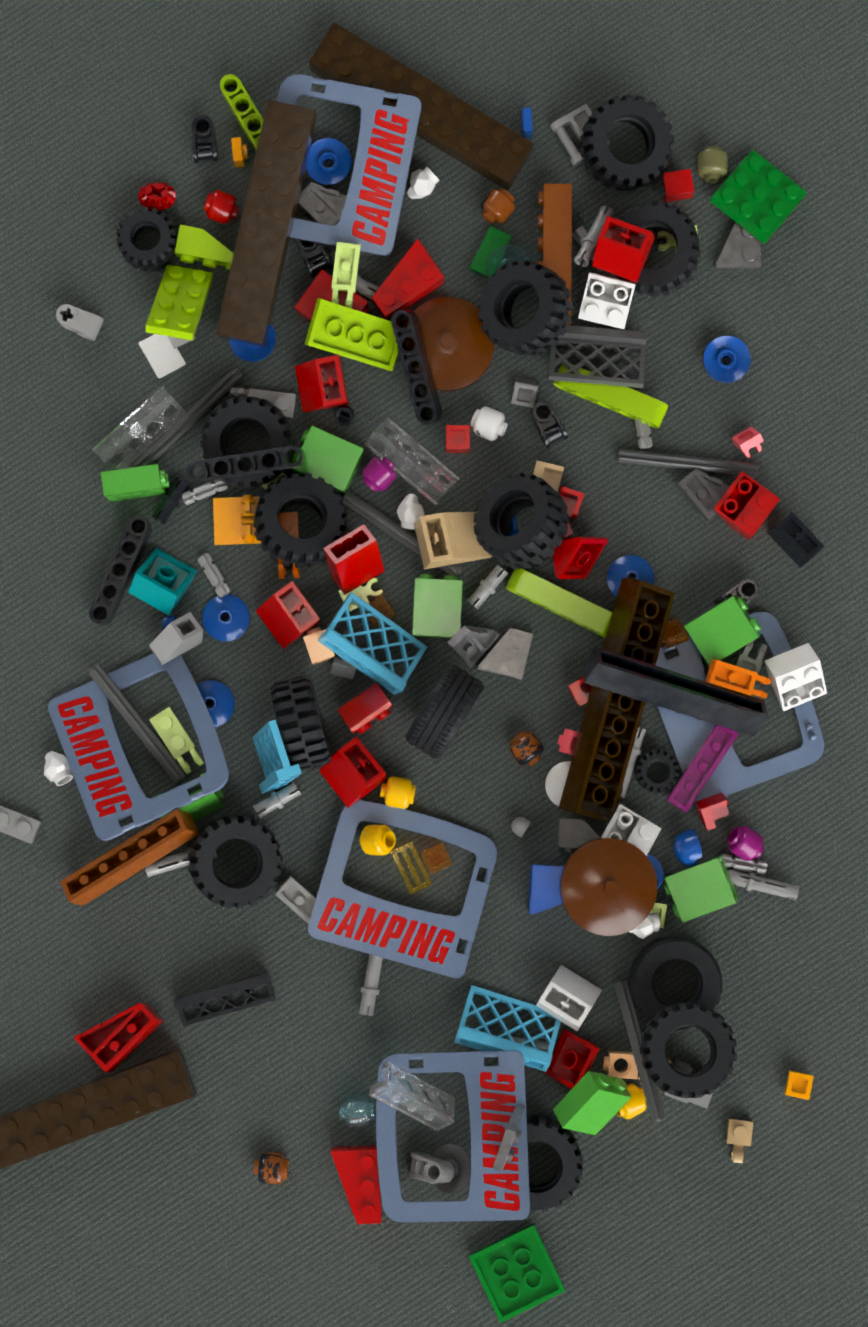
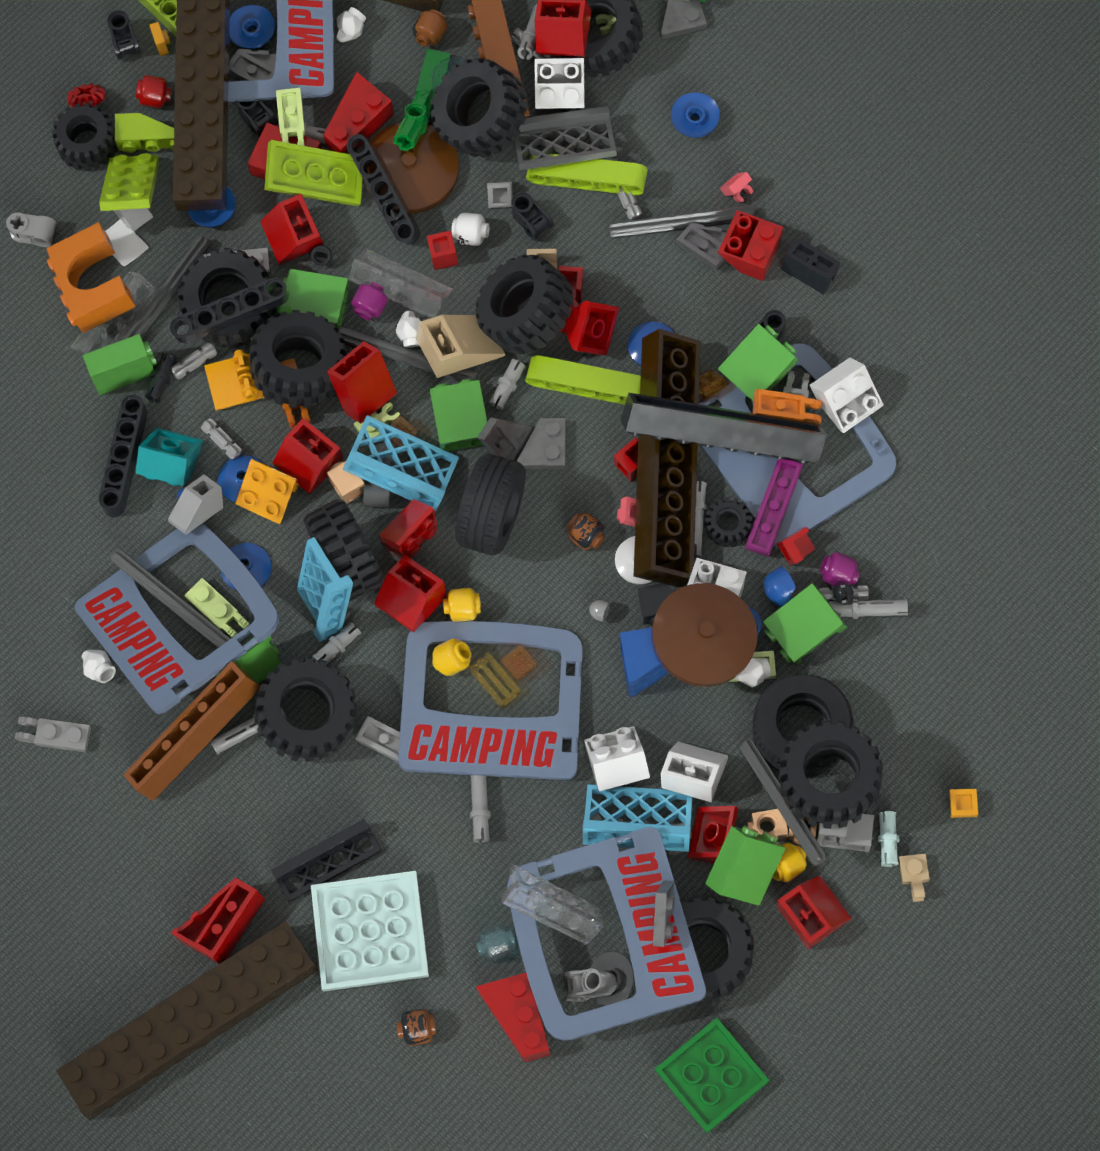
camera: 10 degrees left, 15 degrees down
(107, 365) = (69, 260): none -> orange arch
(244, 638) = (266, 491): none -> light orange hinge
(249, 1072) = (369, 931): none -> light aqua plate
(458, 310) = (415, 120): none -> green piece
(503, 969) = (616, 758): none -> white slope
(642, 1152) = (812, 911): none -> red slope
(724, 1102) = (888, 838): none -> light aqua pin
(738, 867) = (837, 591): none -> black hinge

